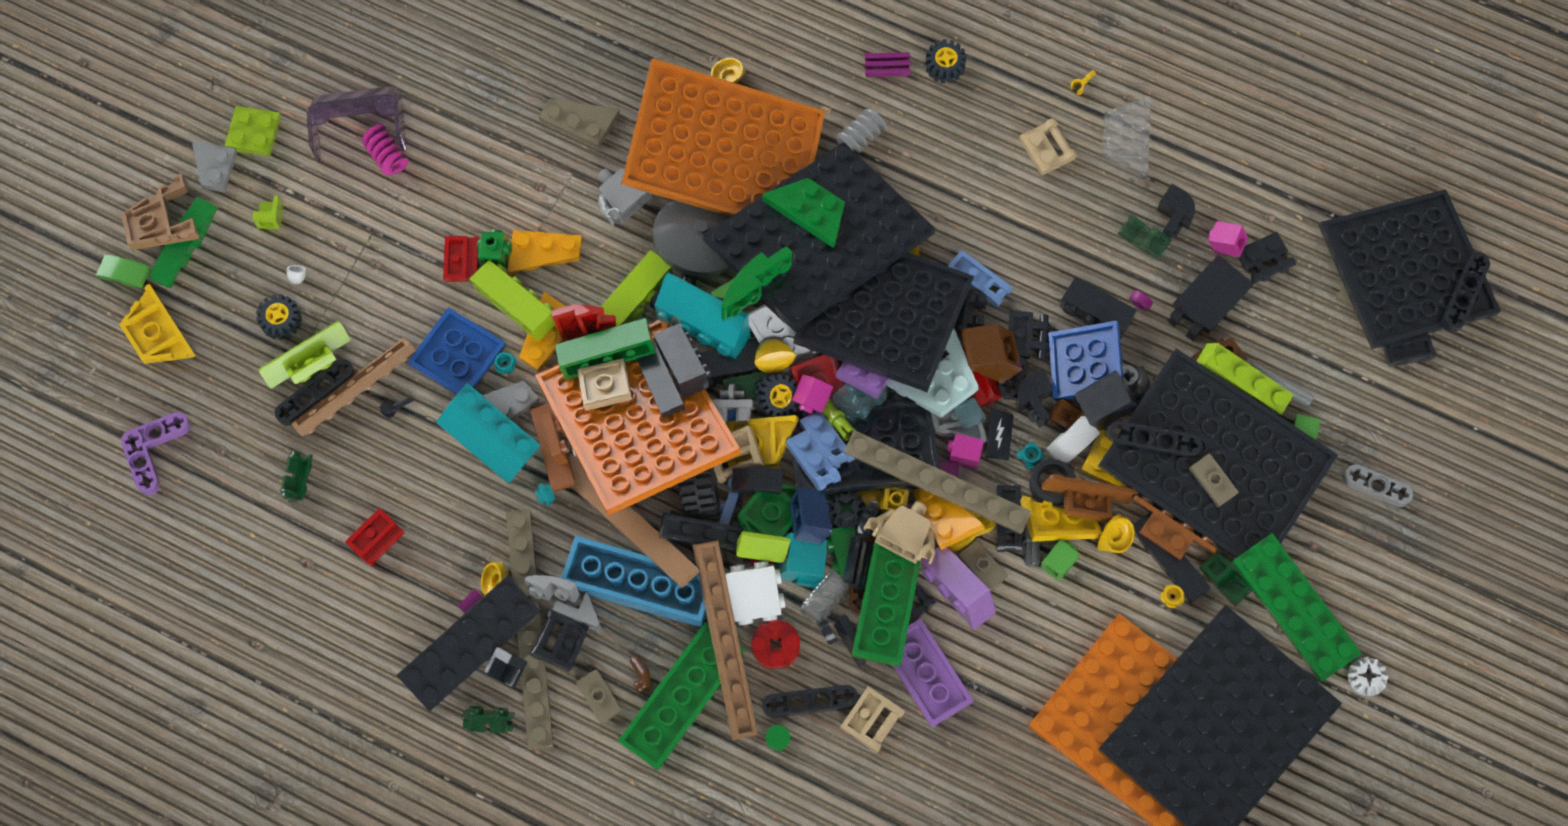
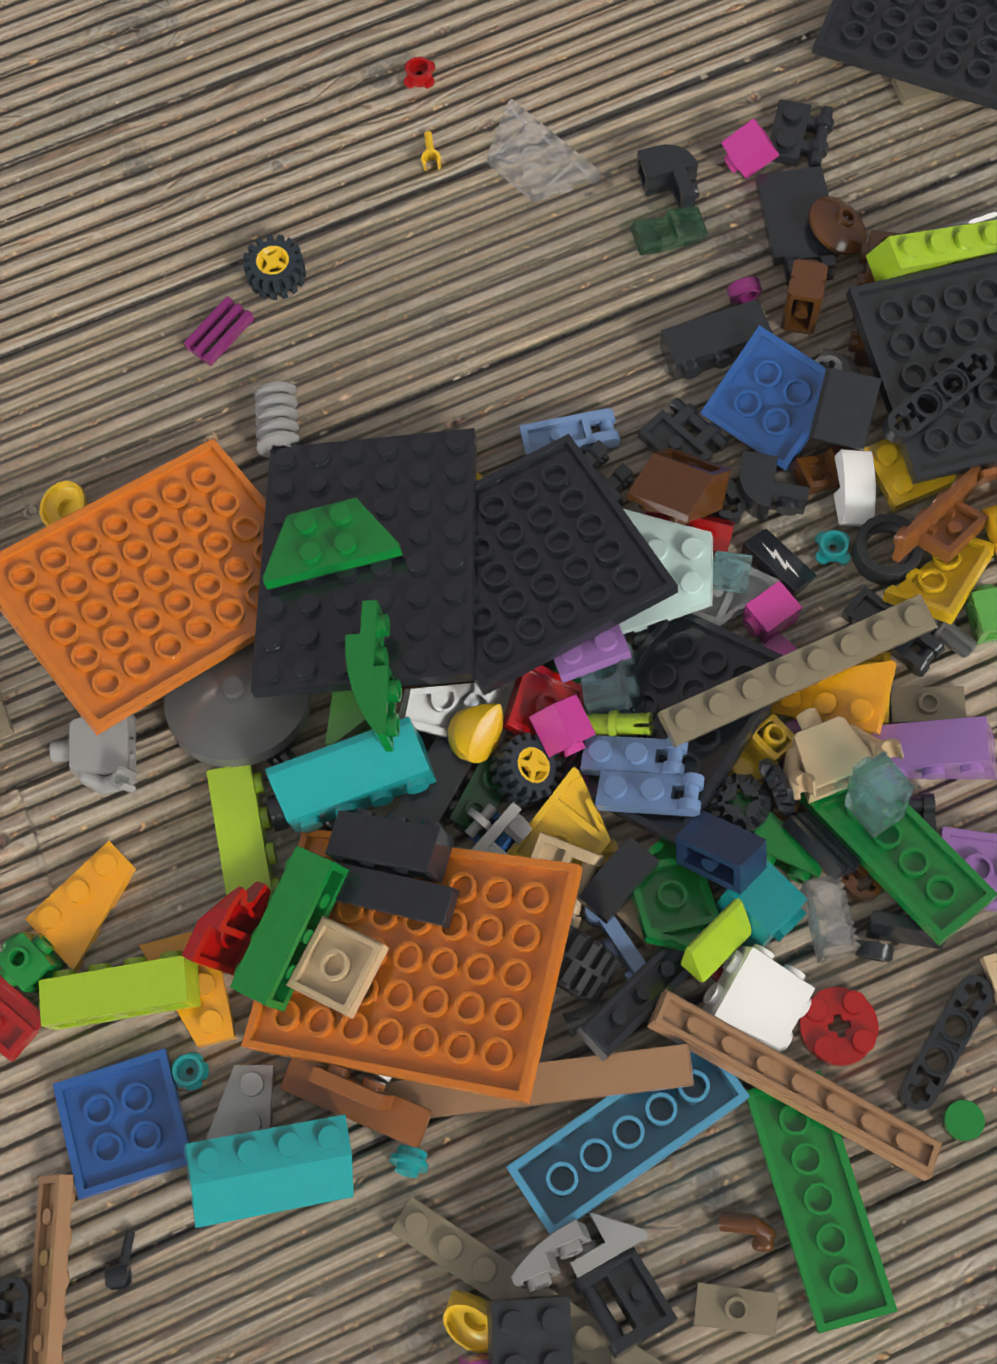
camera: 45 degrees left, 0 degrees up
(901, 566) = (878, 793): none -> clear light blue brick
(1041, 150) = (473, 254): tan plate -> none
(1127, 34) = (417, 66): none -> red plate
(1159, 331) = (804, 296): none -> reddish brown brick
(1215, 318) = (837, 225): none -> reddish brown dish

